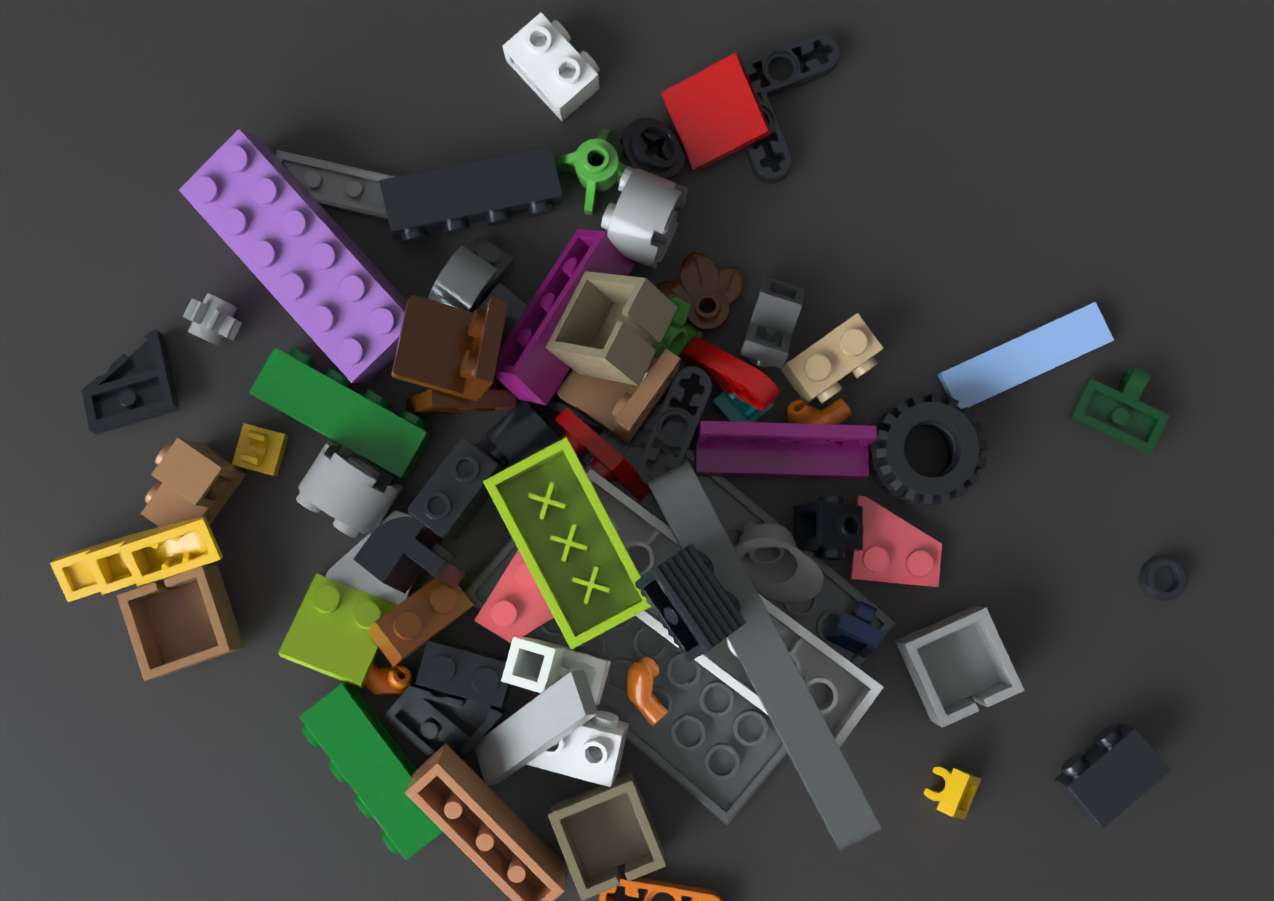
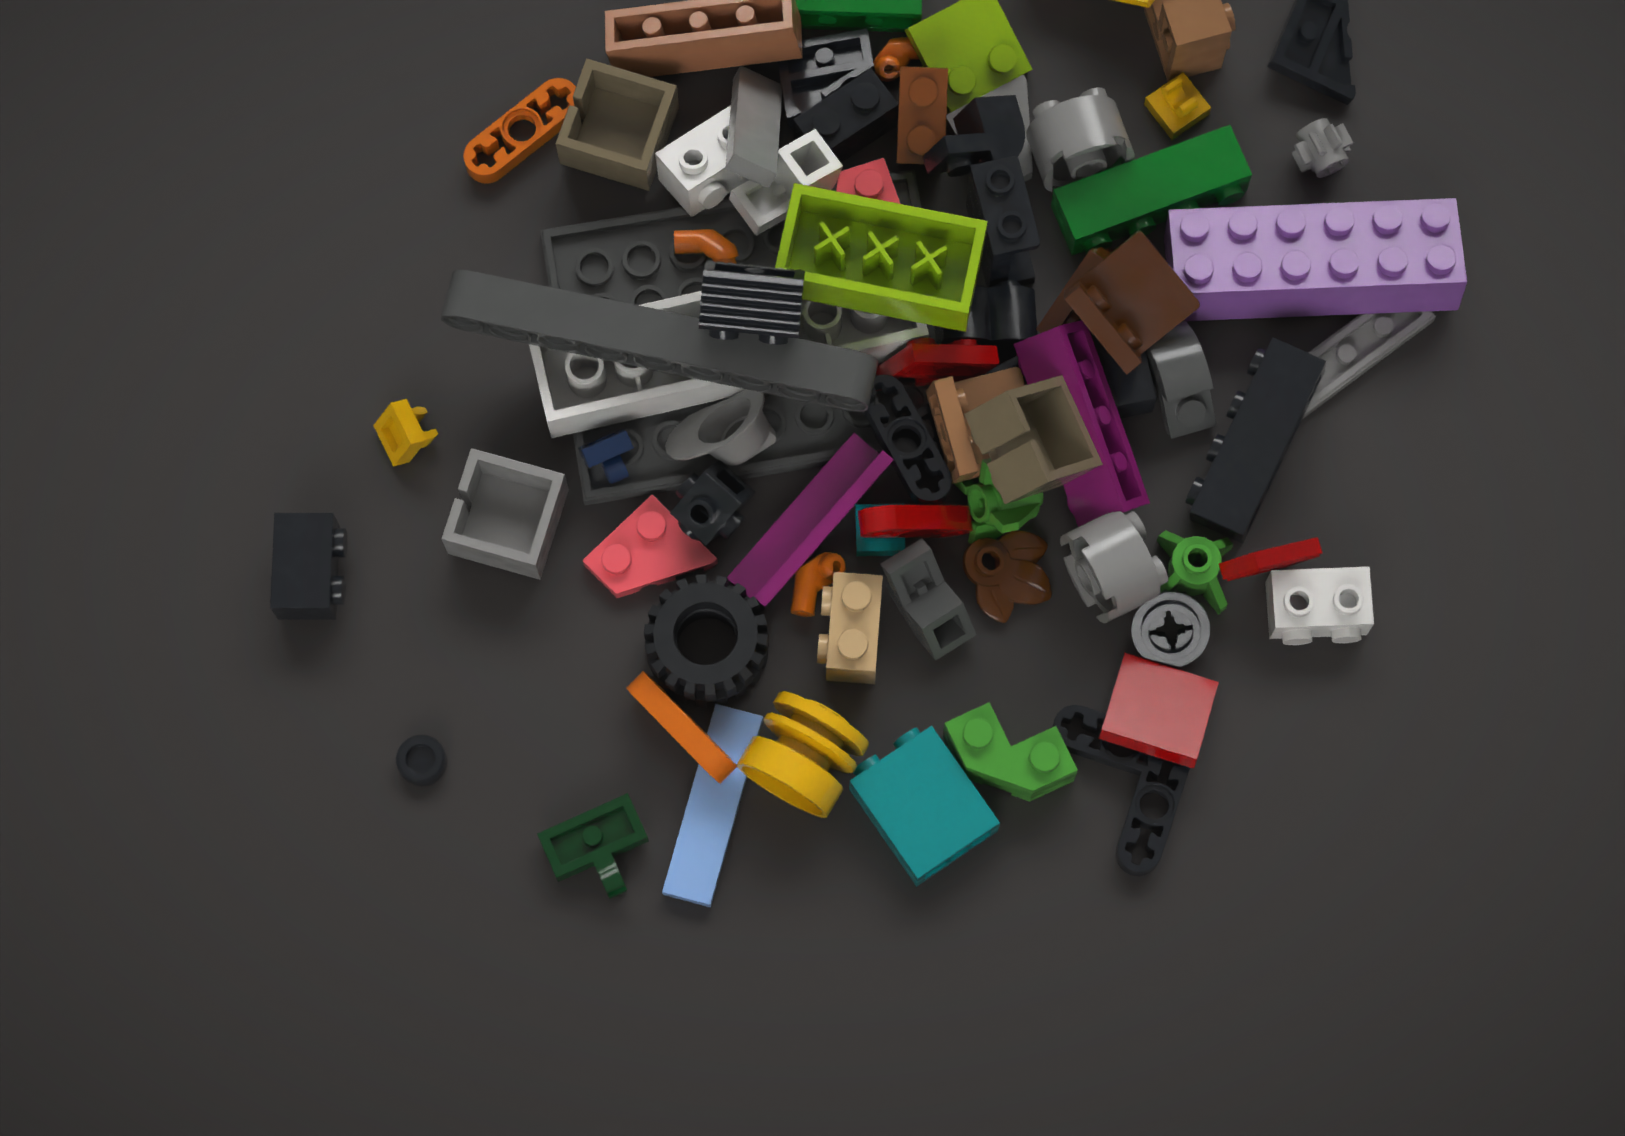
camera: 130 degrees right, 10 degrees down
(552, 114) = (1270, 559): none -> red tile
(832, 168) = (1021, 769): none -> bright green brick
(911, 216) = (922, 803): none -> teal brick
(954, 315) = (807, 746): none -> yellow wheel
(1001, 414) = (681, 727): none -> orange beam

